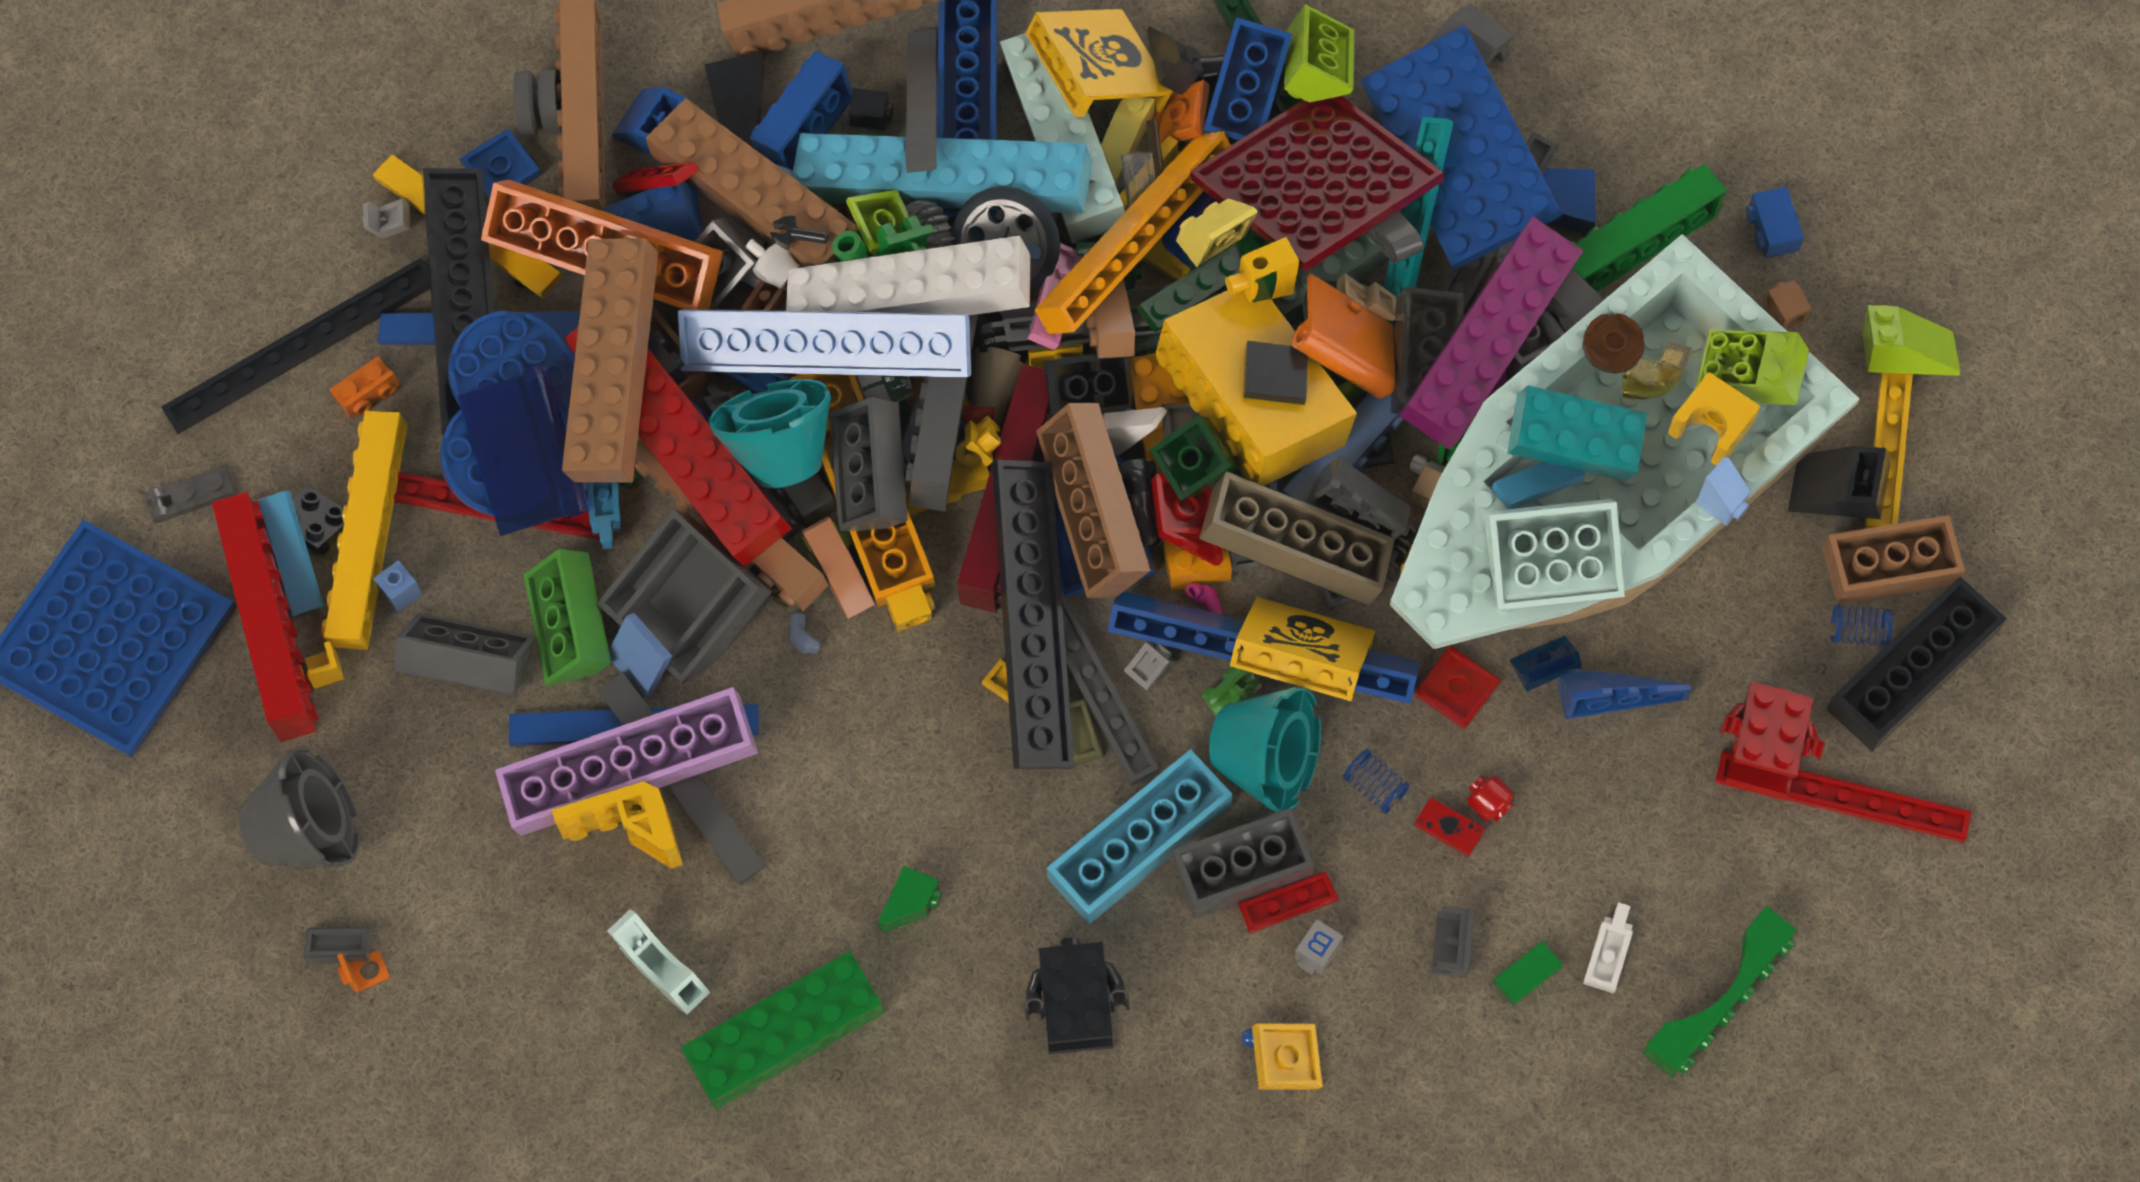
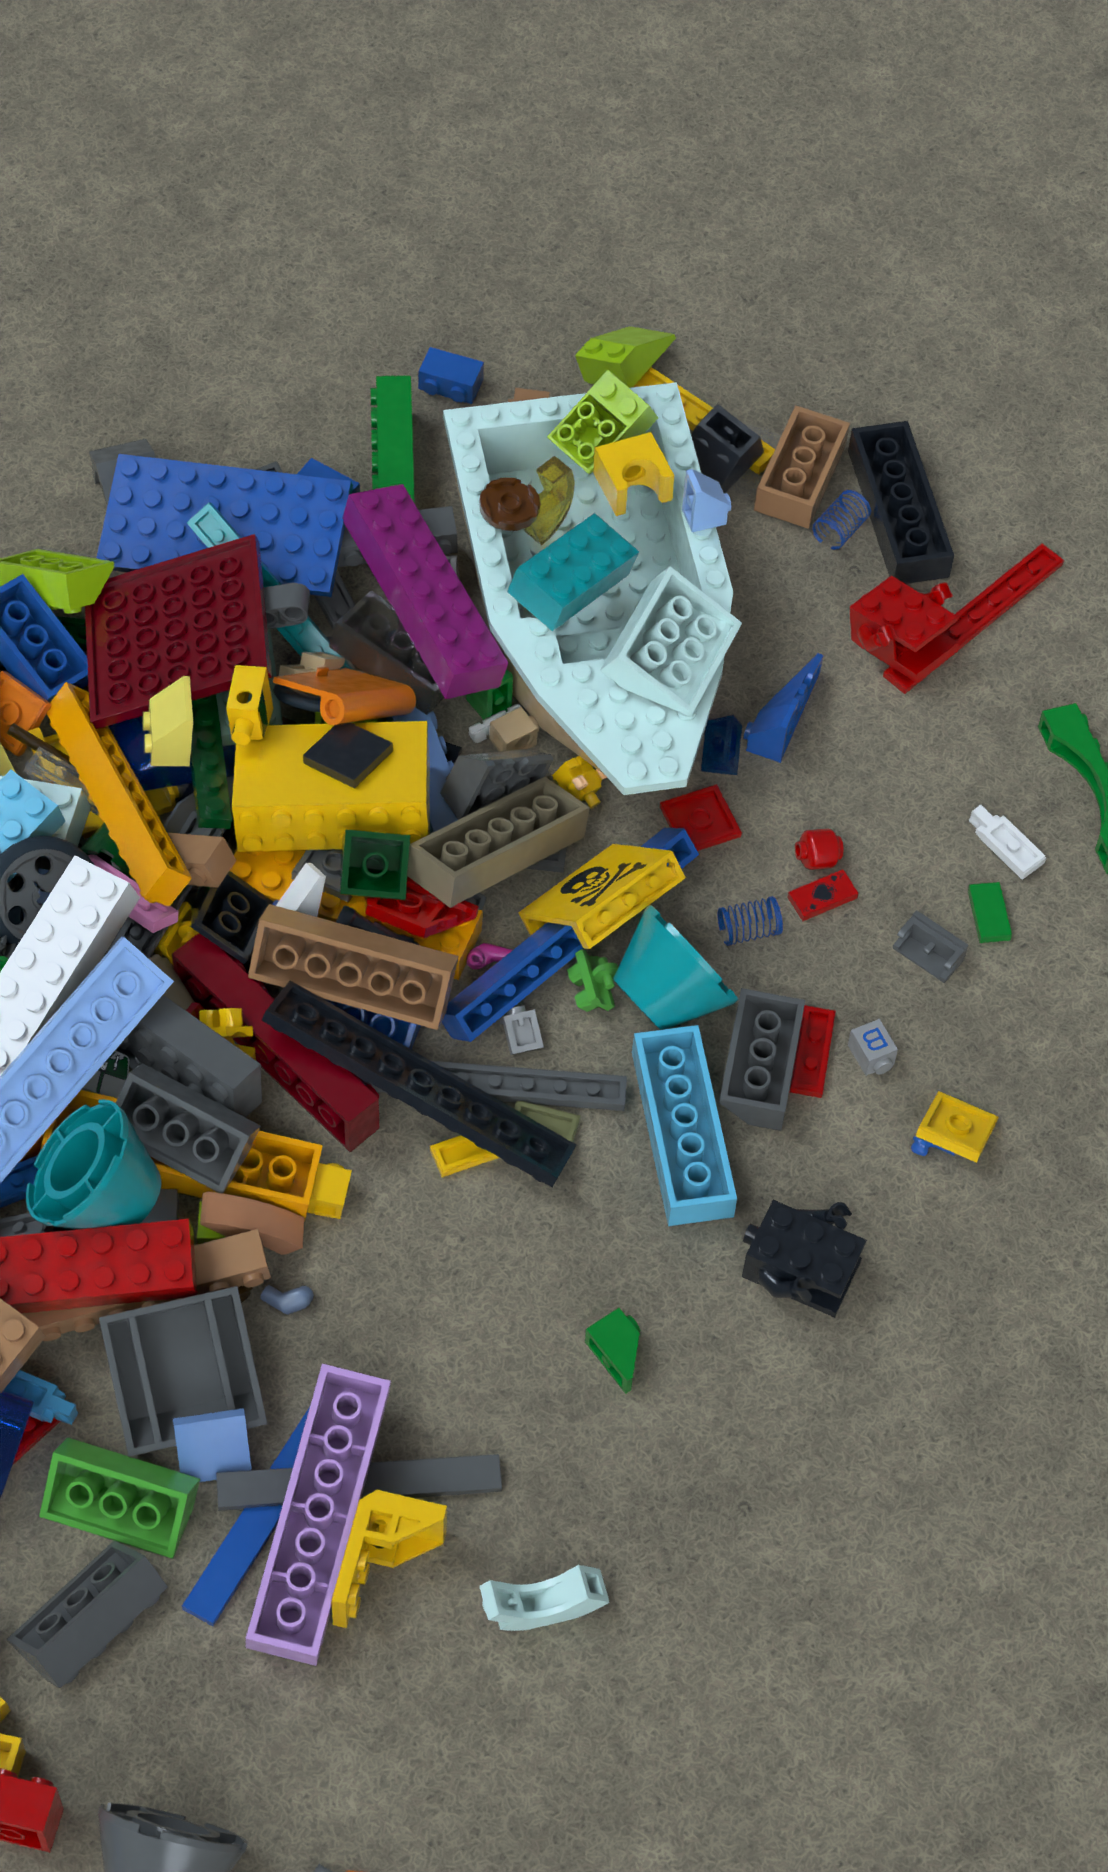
camera: 65 degrees left, 10 degrees down
(782, 1030) = (677, 1527): green brick -> none
(1535, 483) = (589, 632): dark azure tile -> none

